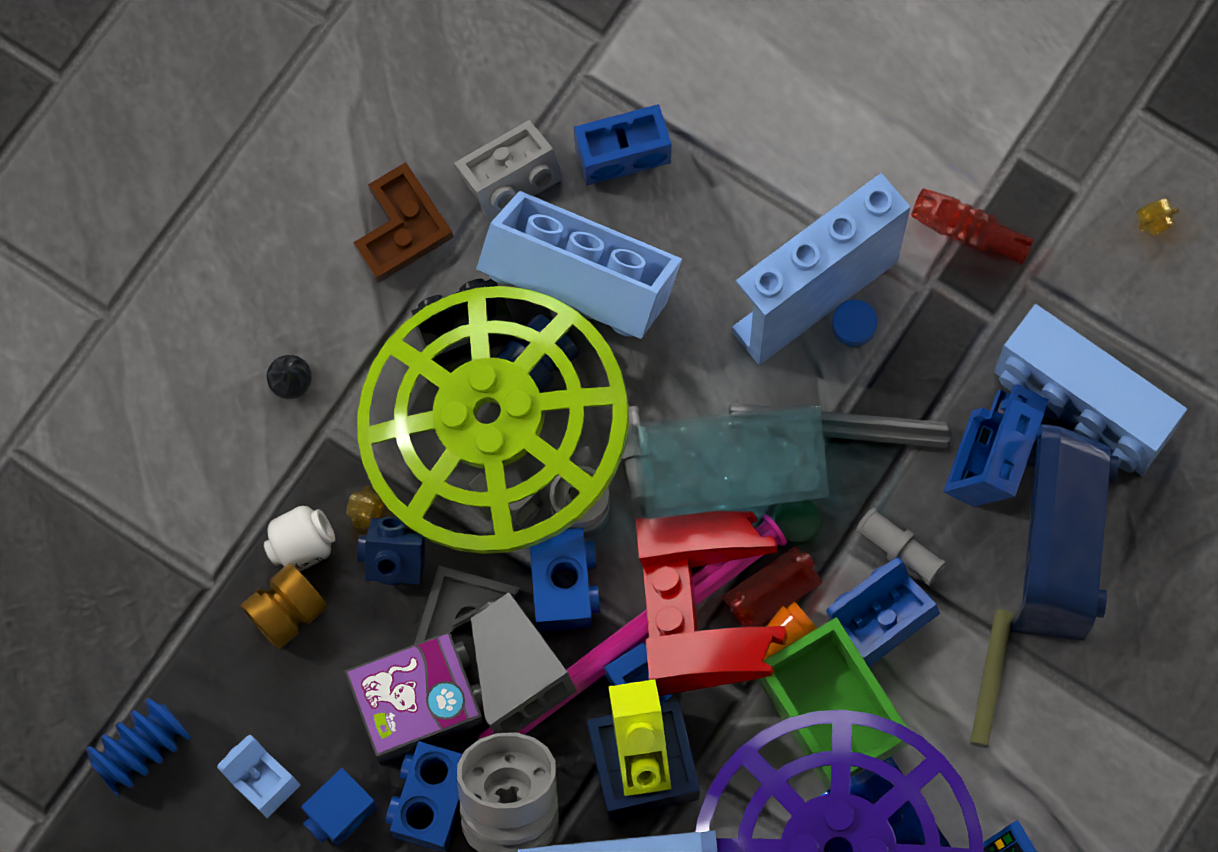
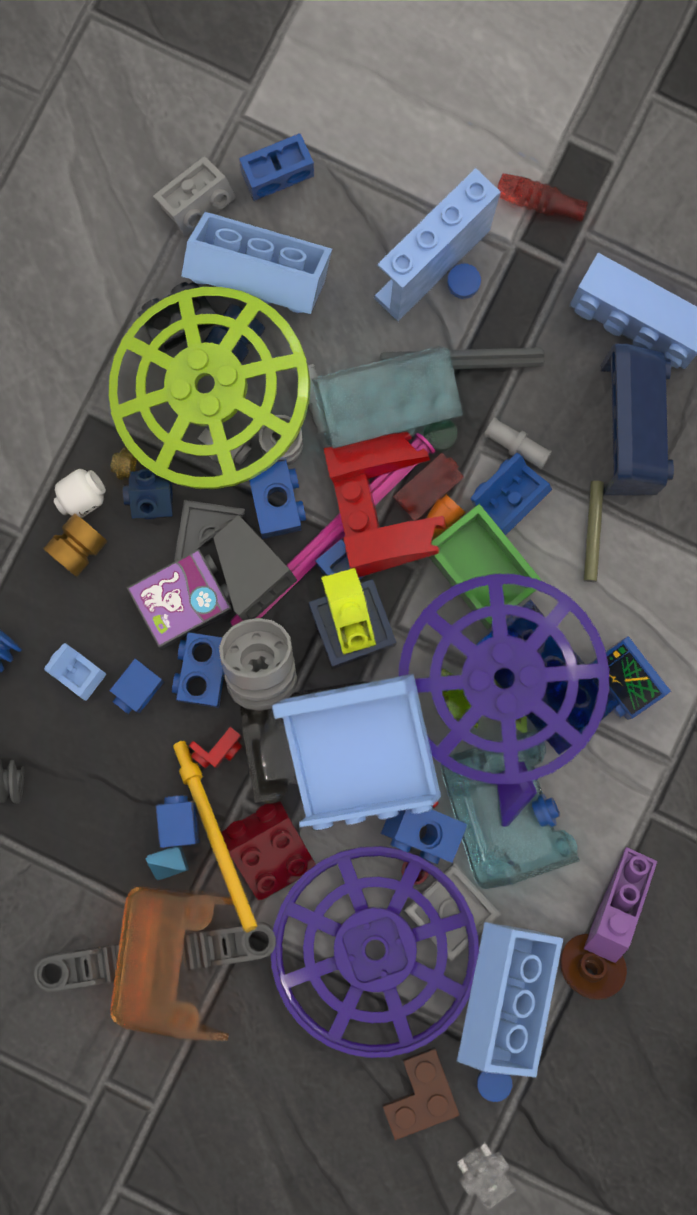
camera: 15 degrees left, 10 degrees up
(289, 377) = (54, 373): black plate -> none
(412, 227) = (128, 251): reddish brown plate -> none
(1003, 457) = (586, 366): blue piece -> none
(1157, 216) = (675, 173): clear yellow plate -> none

